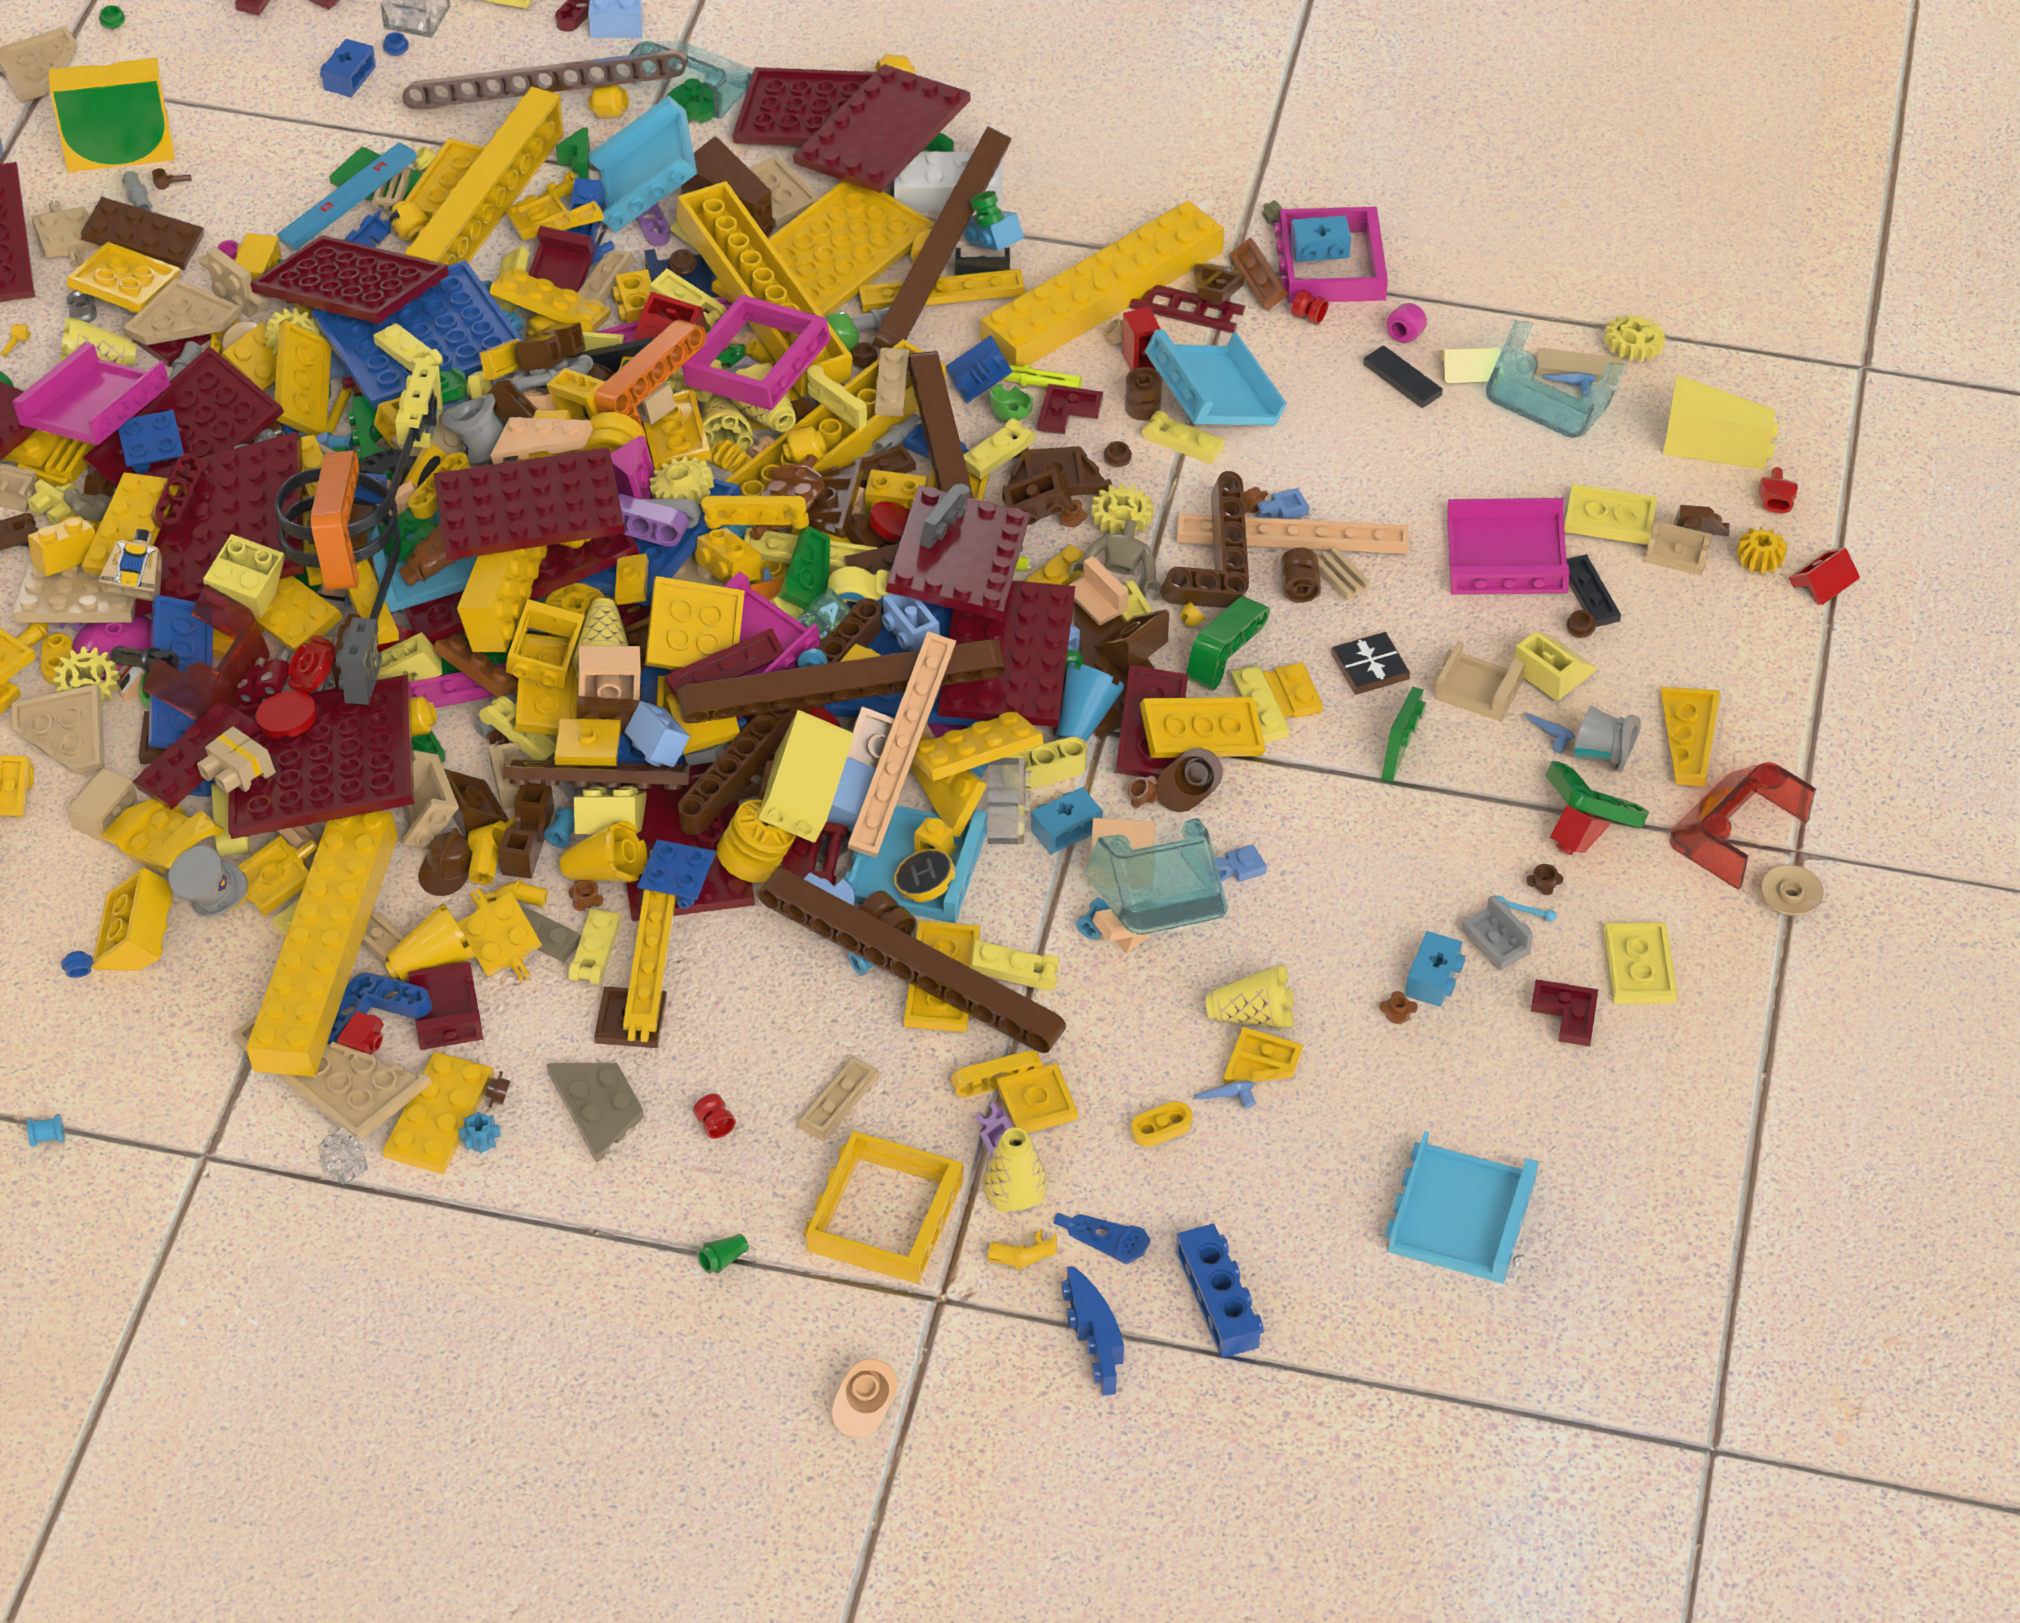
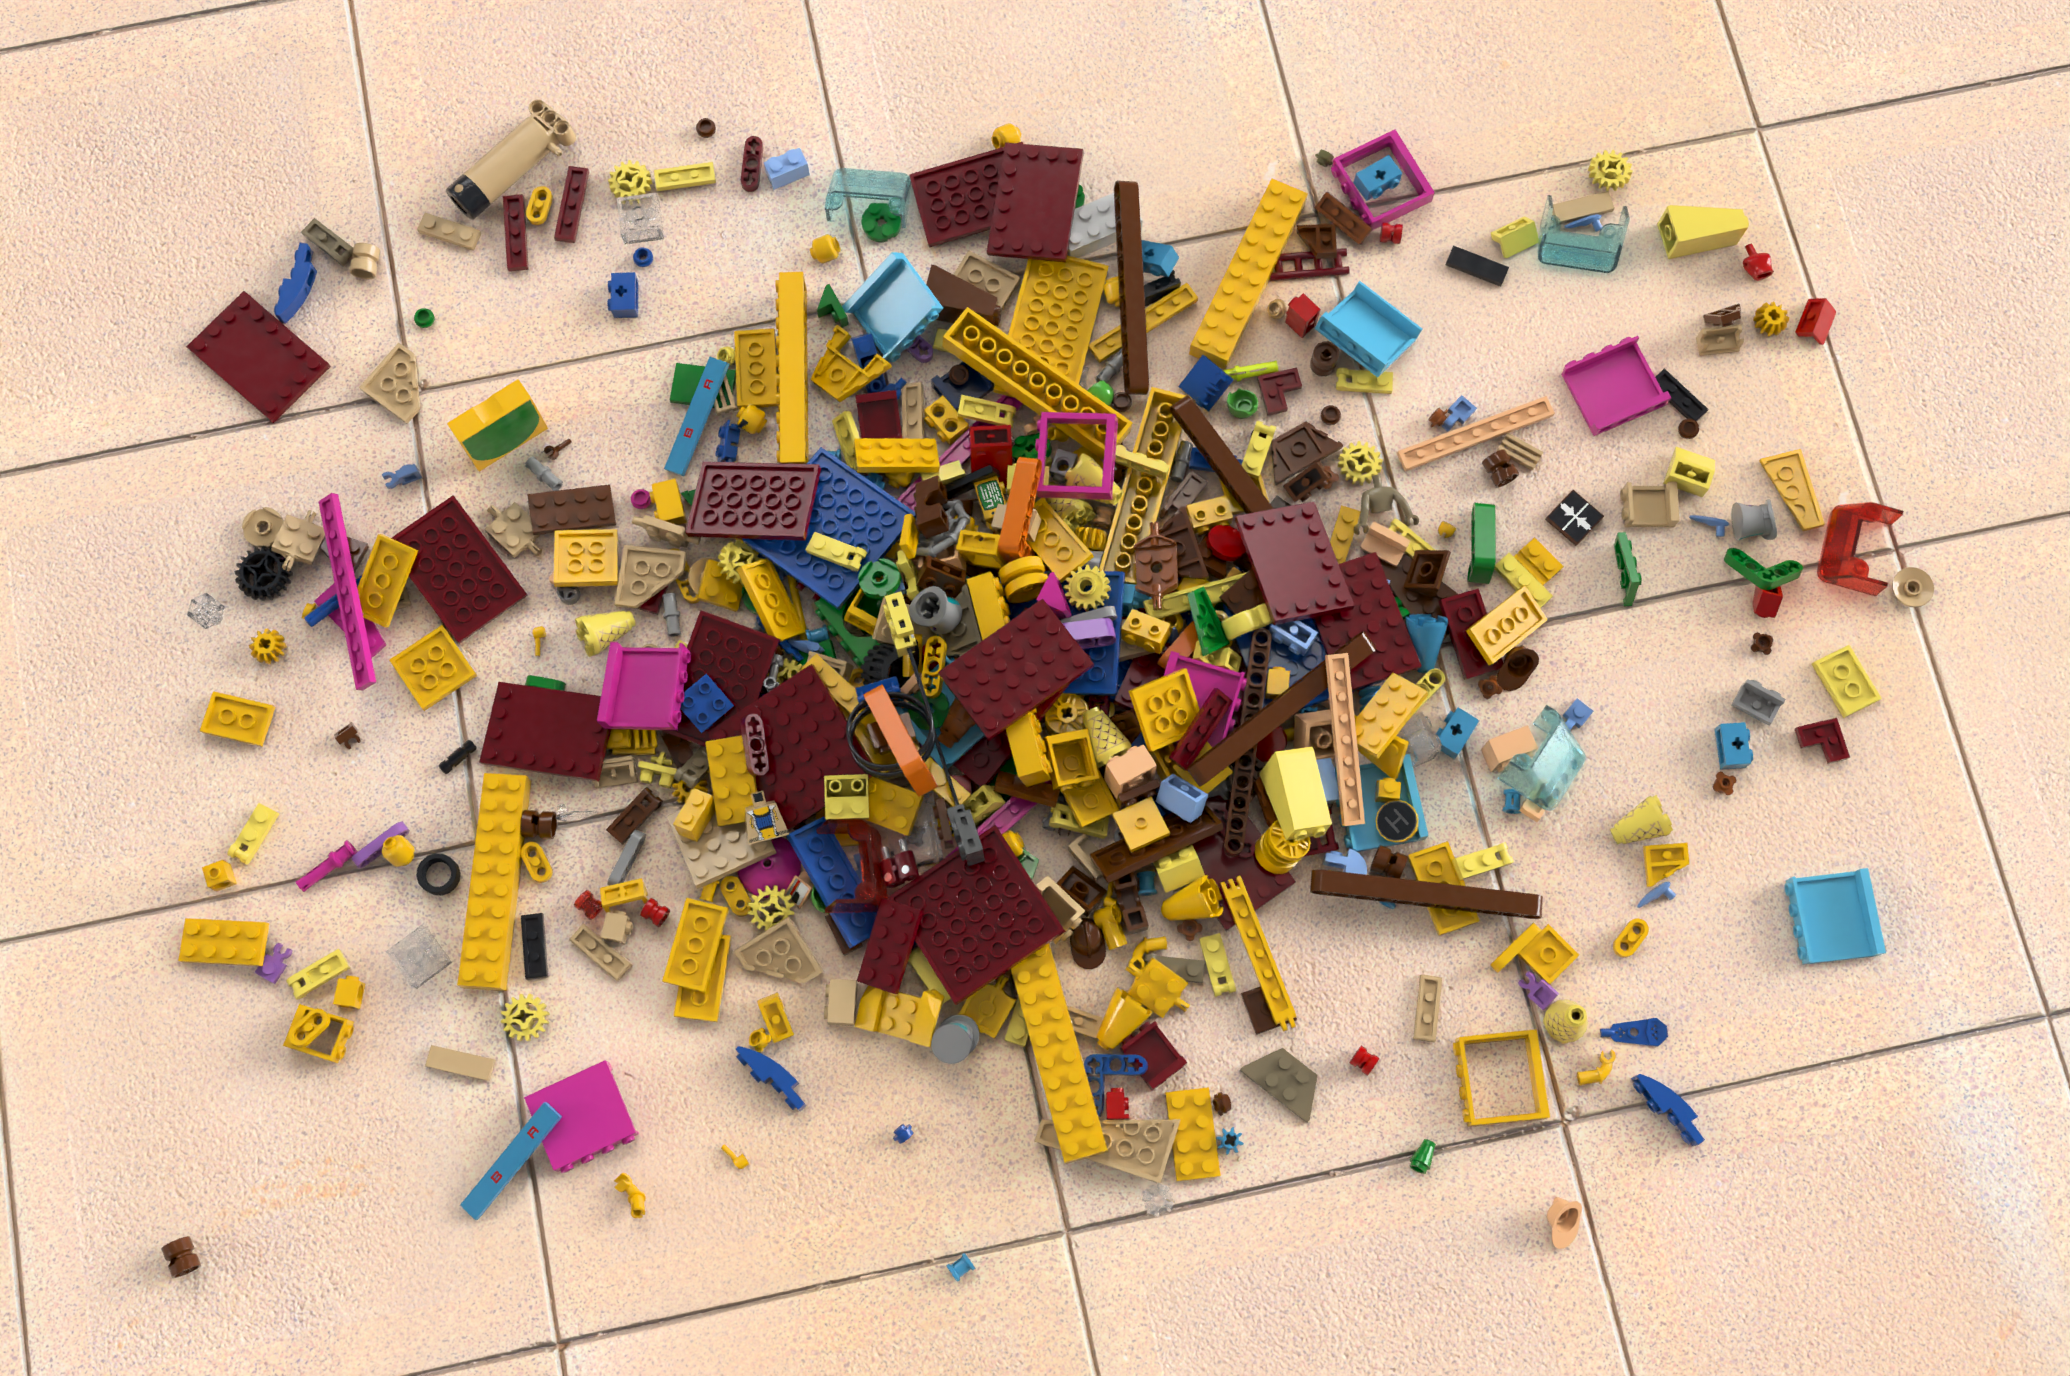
camera: 25 degrees left, 25 degrees up
(133, 923) = (919, 1086): yellow slope -> none
(143, 658) = (820, 890): black pin -> none
(235, 761) = (928, 946): tan hips -> none
(286, 714) = (934, 892): red tile -> none
(311, 664) = (931, 849): red tile -> none
(533, 435) = (986, 605): light nougat wing -> none
(555, 71) = (786, 252): reddish brown beam -> none
(631, 579) = (1099, 684): yellow plate -> none
(677, 871) = (1246, 893): blue hinge -> none
(755, 511) = (1146, 599): yellow plate -> none
(805, 442) = (1143, 514): yellow head -> none
(812, 658) = (1255, 701): dark azure plate -> none
(826, 612) = (1238, 655): clear light blue brick -> none
(892, 382) = (1166, 429): tan plate -> none
(945, 514) = (1276, 542): dark grey plate -> none
(986, 208) = (1152, 252): green wheel -> none
(1225, 551) = (1445, 473): reddish brown beam -> none
(1229, 1334) = (1697, 1026): blue brick -> none
(1406, 323) = (1460, 220): dark pink head -> none
(1549, 915) = (1777, 669): medium azure hinge -> none
(1610, 514) = (1664, 328): light yellow plate -> none

